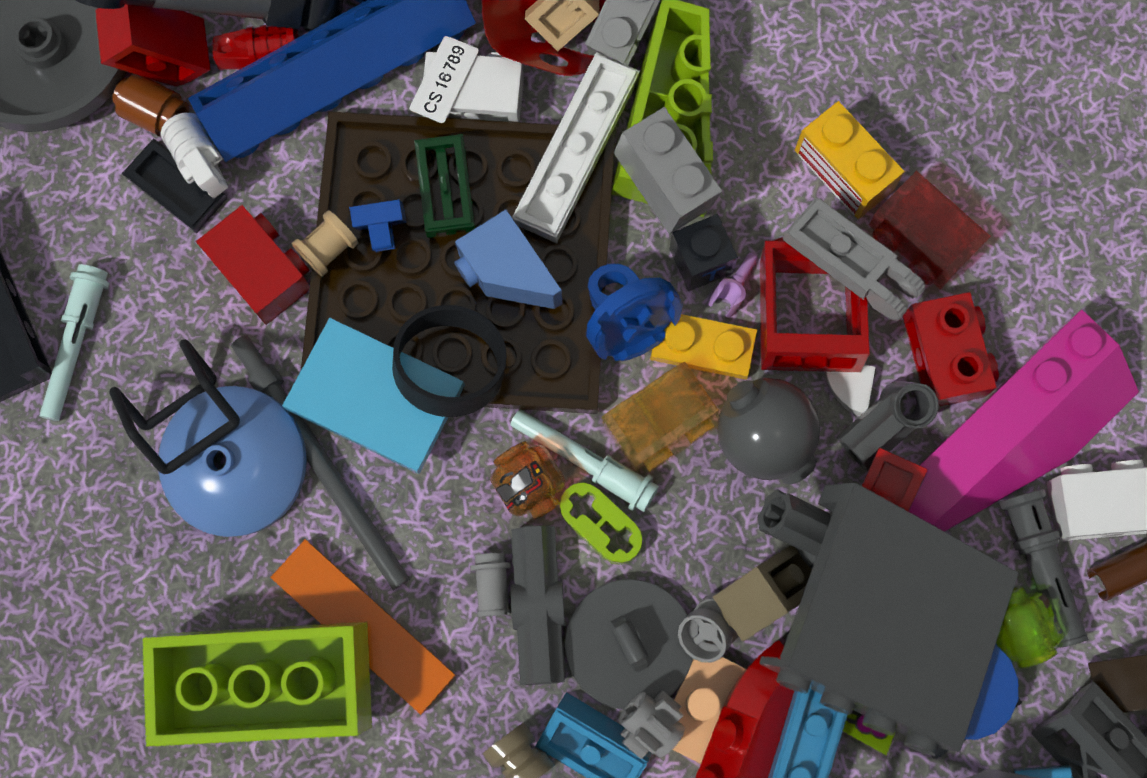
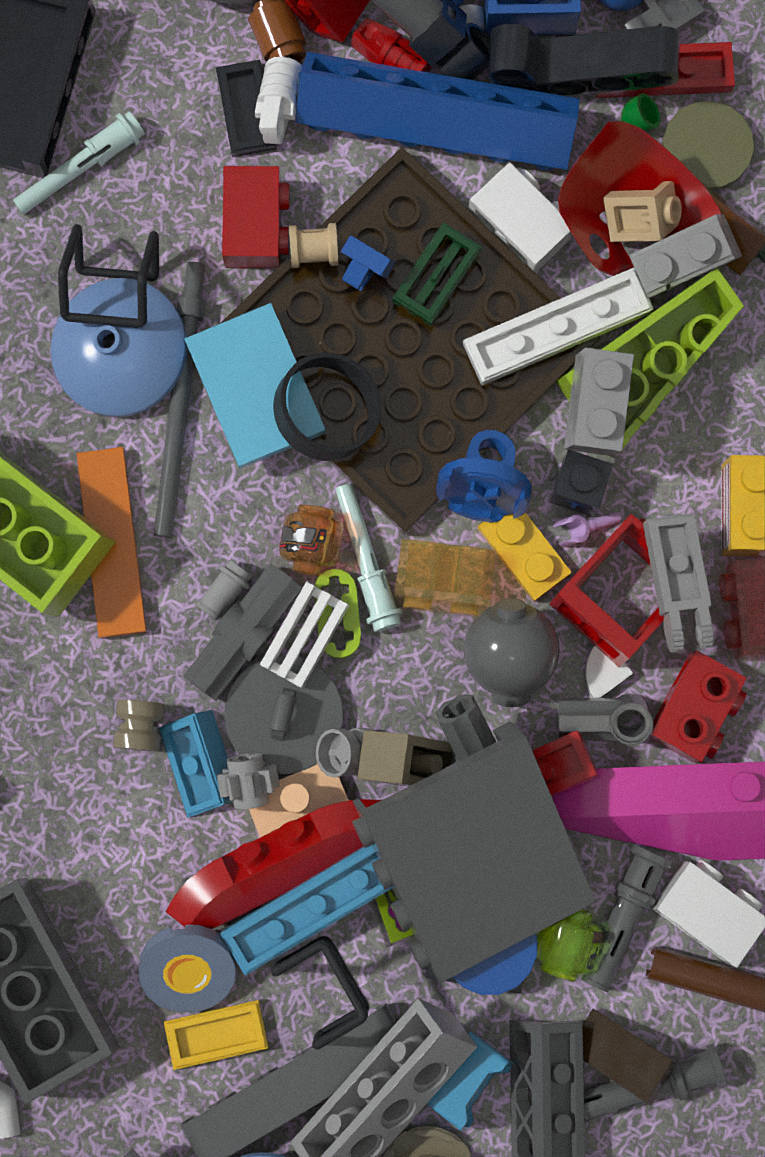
camera: 35 degrees right, 5 degrees up
(444, 79) = (503, 194): white sticker -> none
(506, 264) = (427, 370): medium blue slope -> none
(581, 520) = (288, 626): none -> white tile

